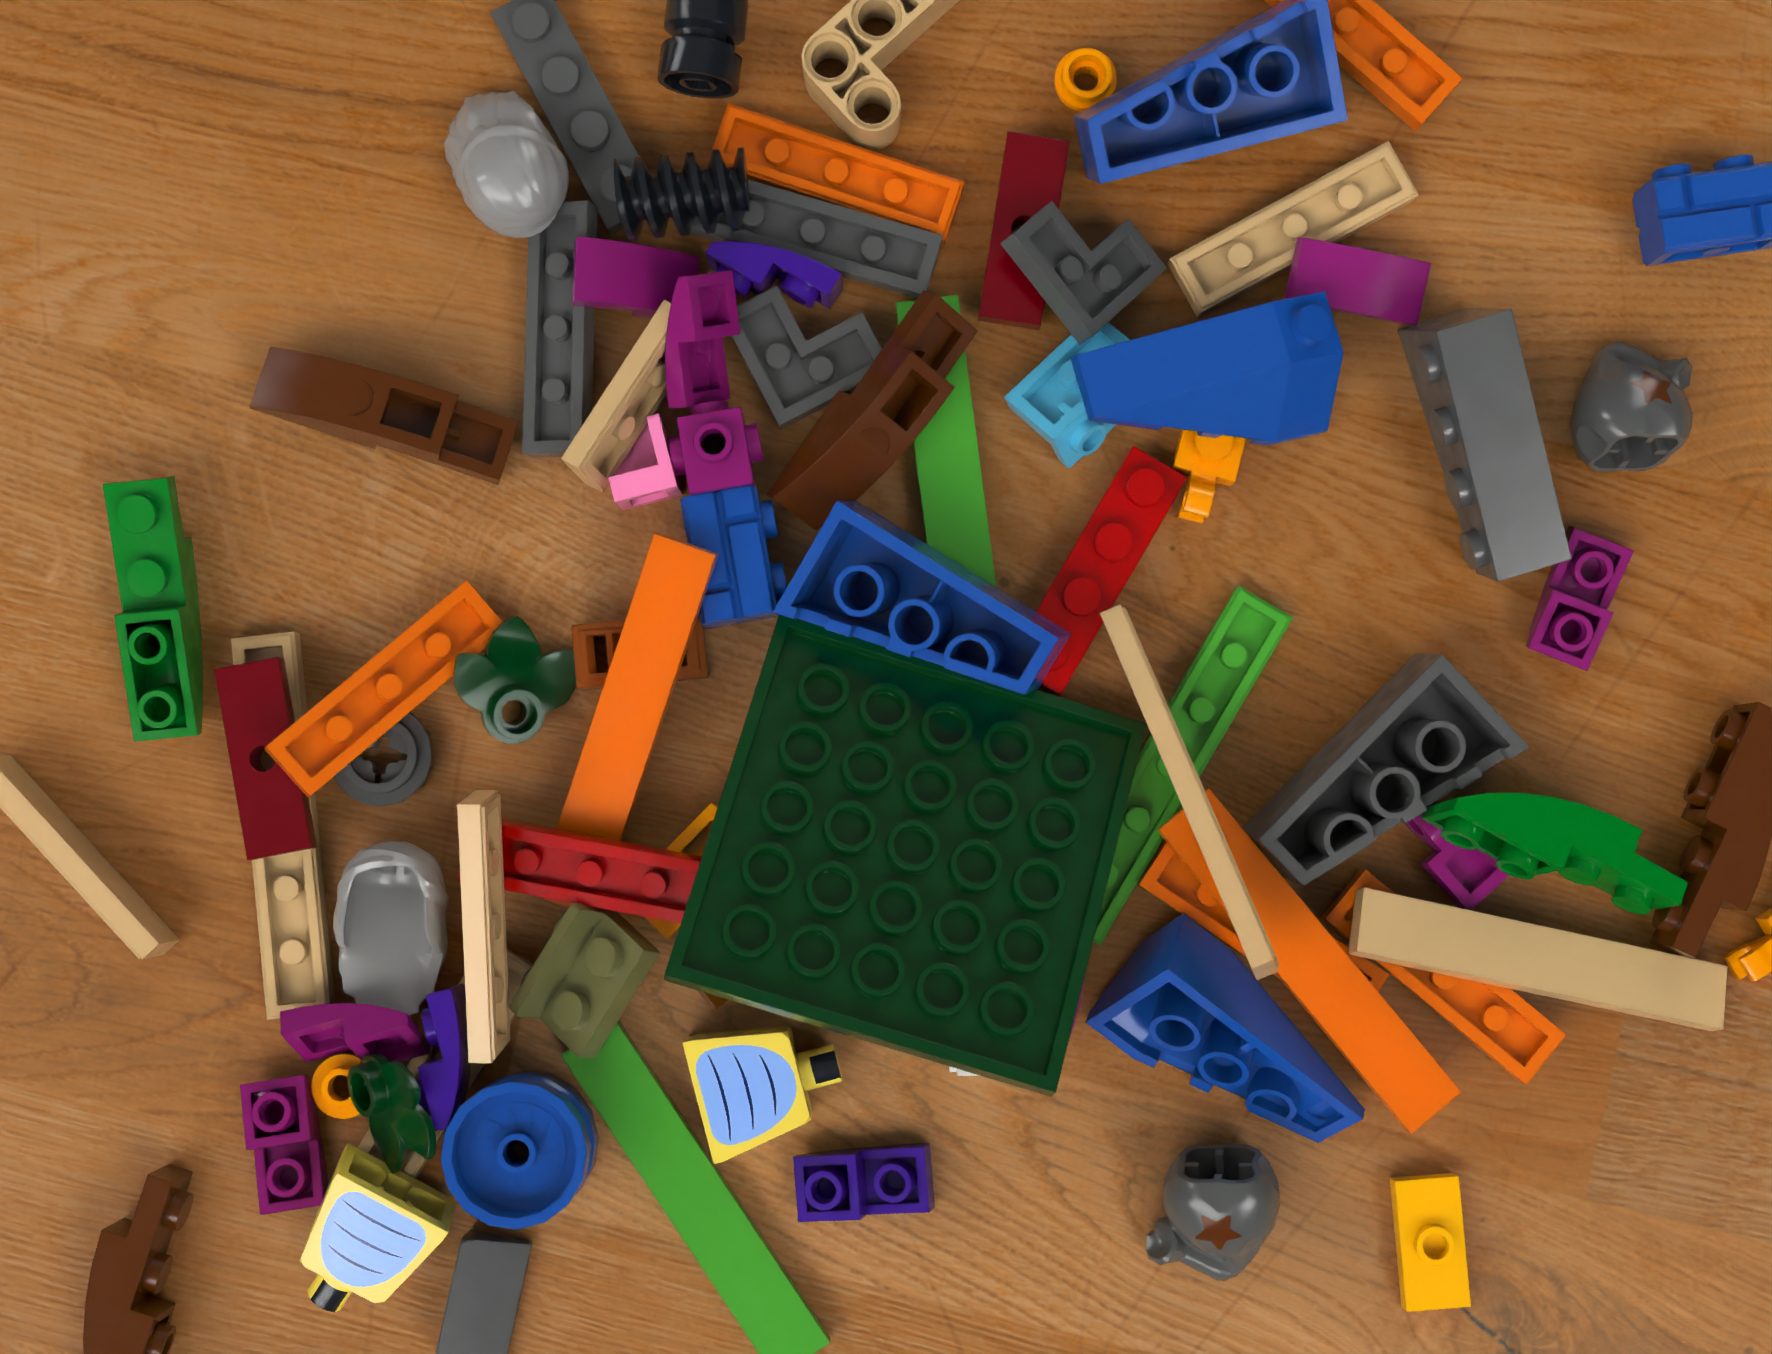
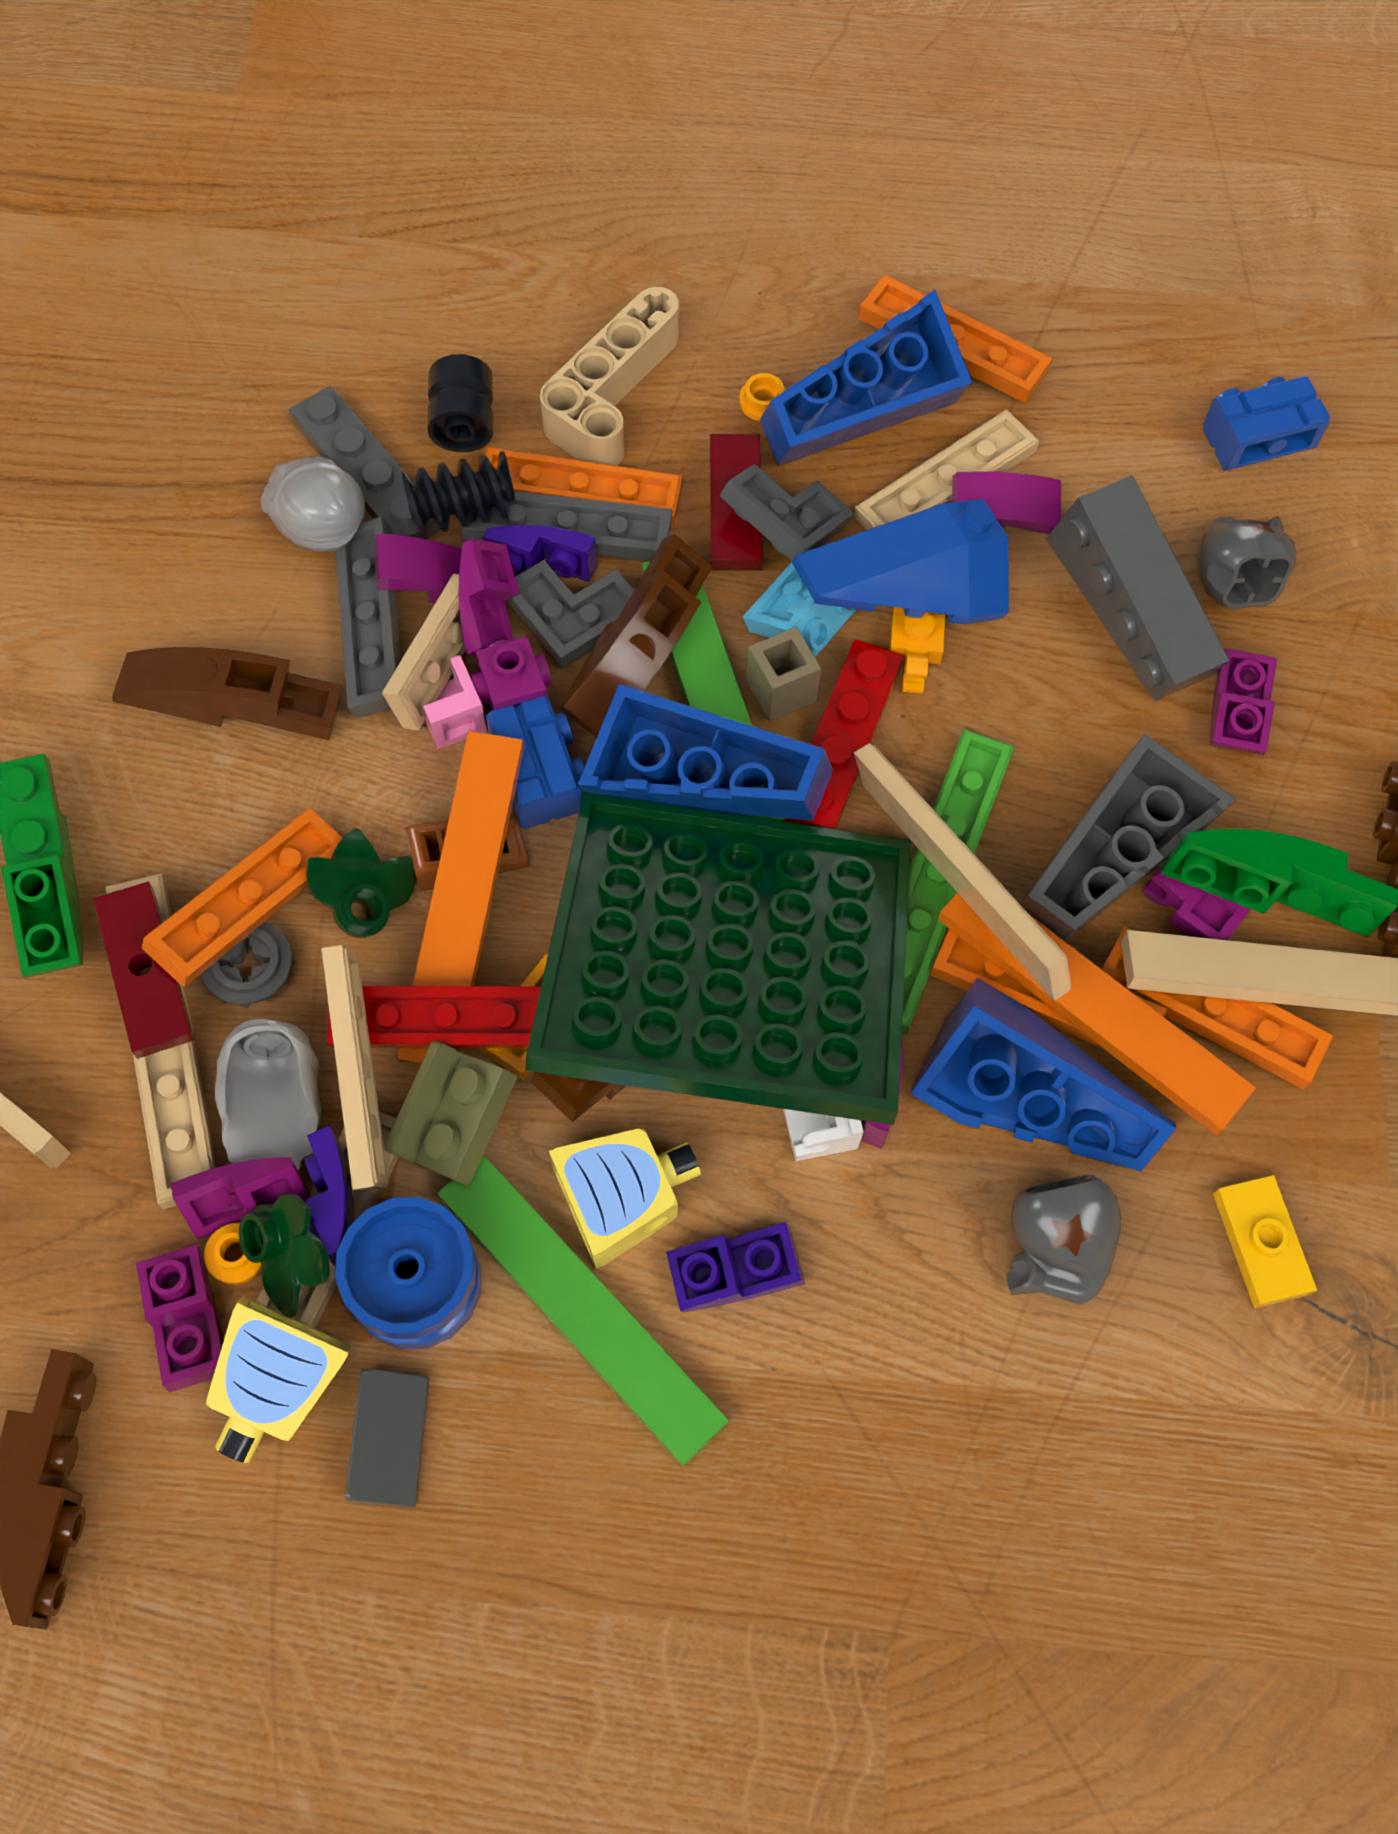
camera: 10 degrees left, 20 degrees down
(1036, 489) = (783, 674): none -> dark tan brick

